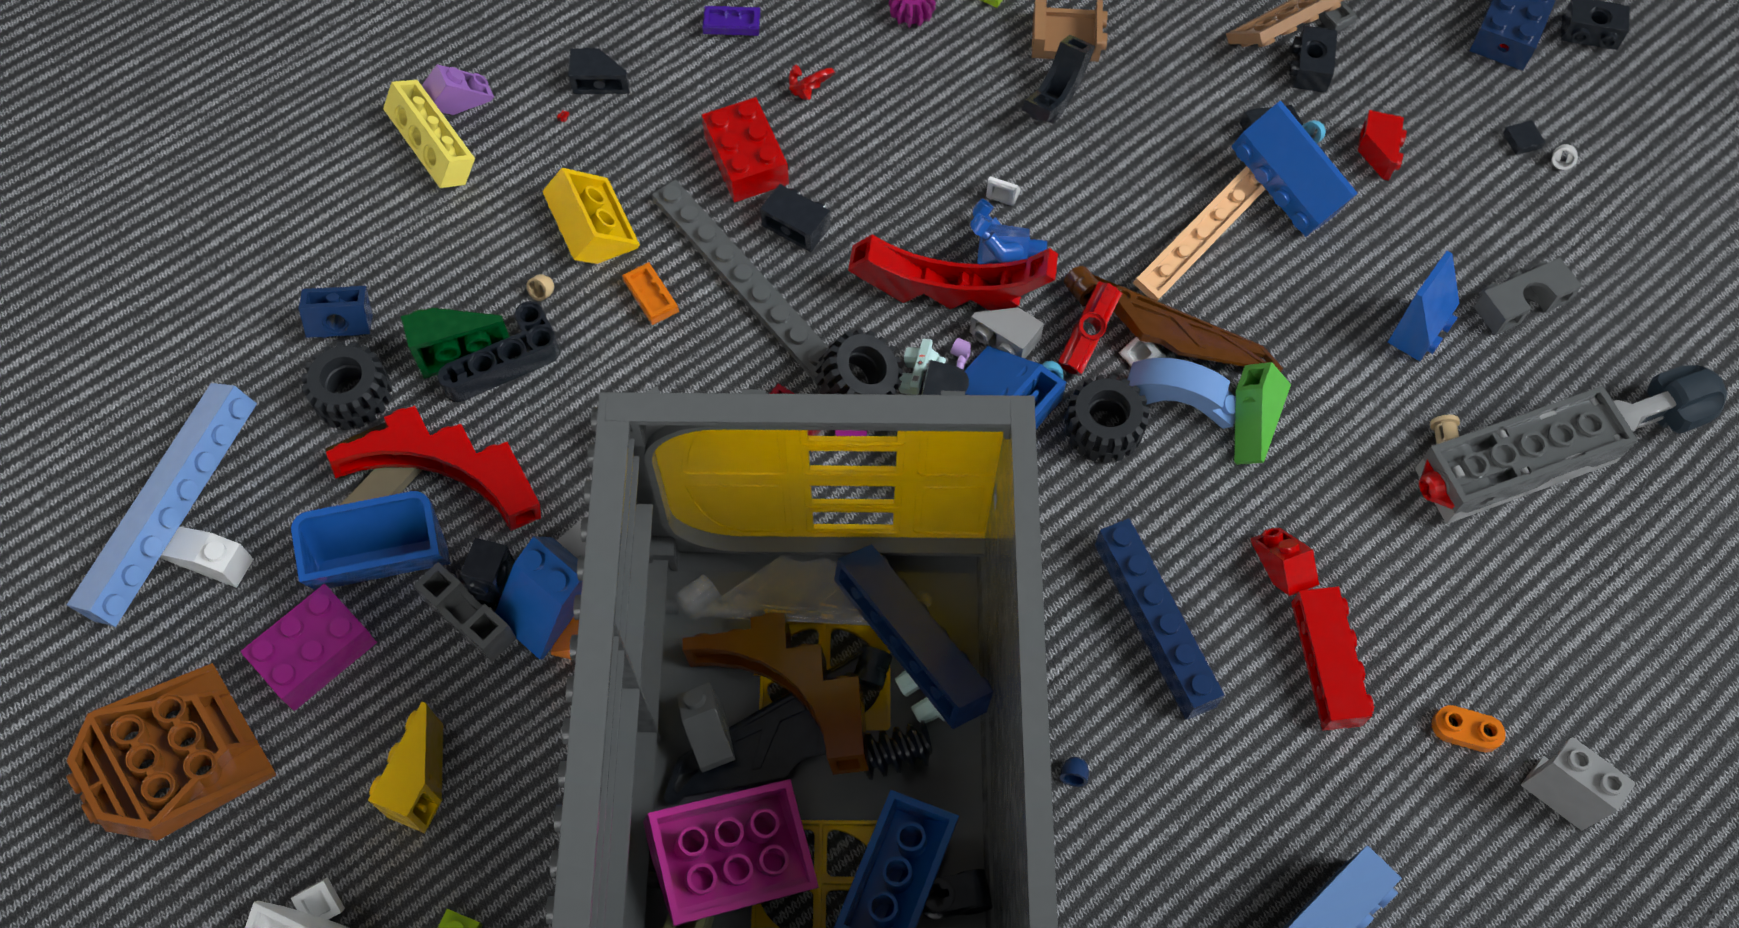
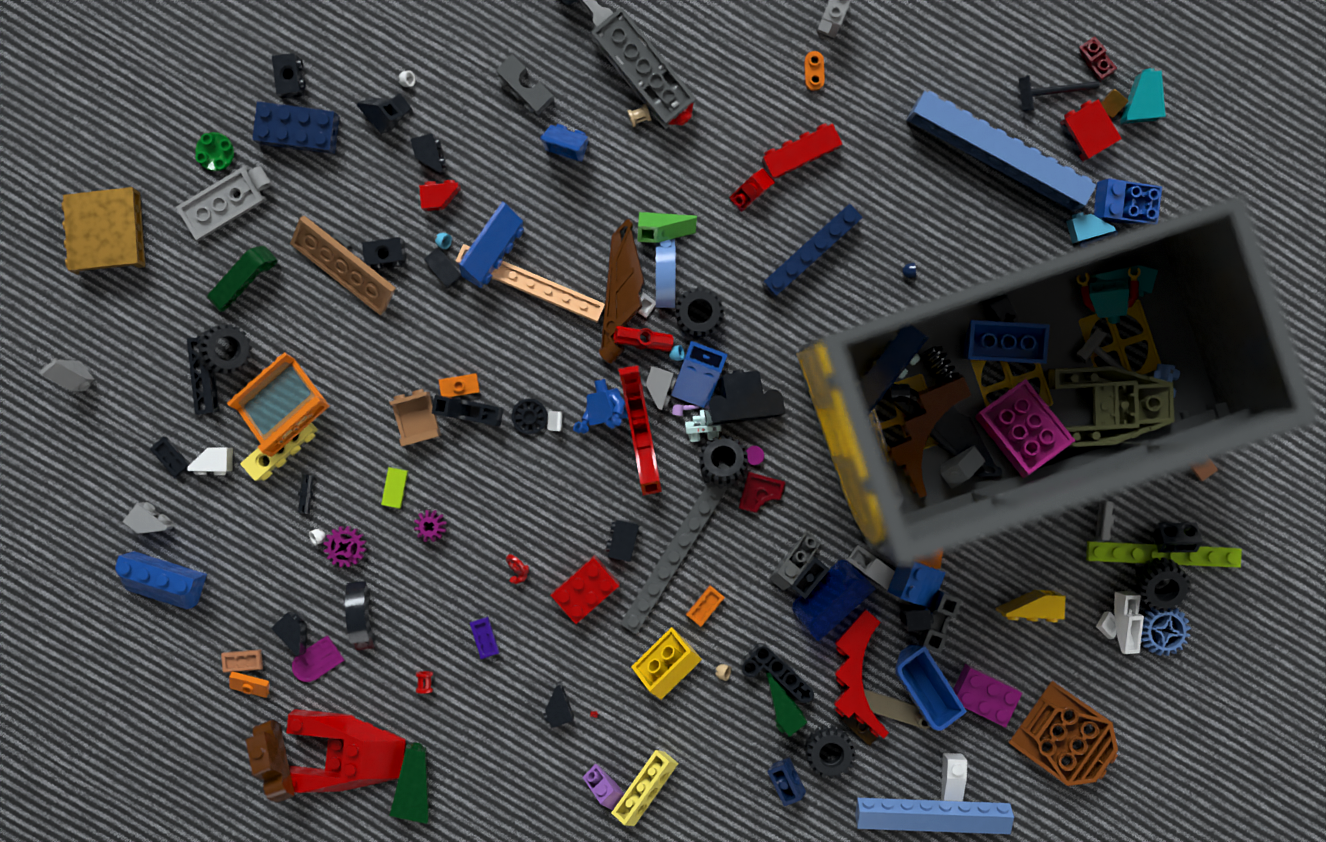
camera: 110 degrees left, 25 degrees up
(564, 439) = (832, 599): none -> clear blue windscreen
(1021, 162) = (529, 416): none -> black wheel
(1095, 94) = (459, 385): none -> orange plate
(1450, 148) = (427, 152): none -> black slope
(1517, 108) = (381, 113): none -> black slope

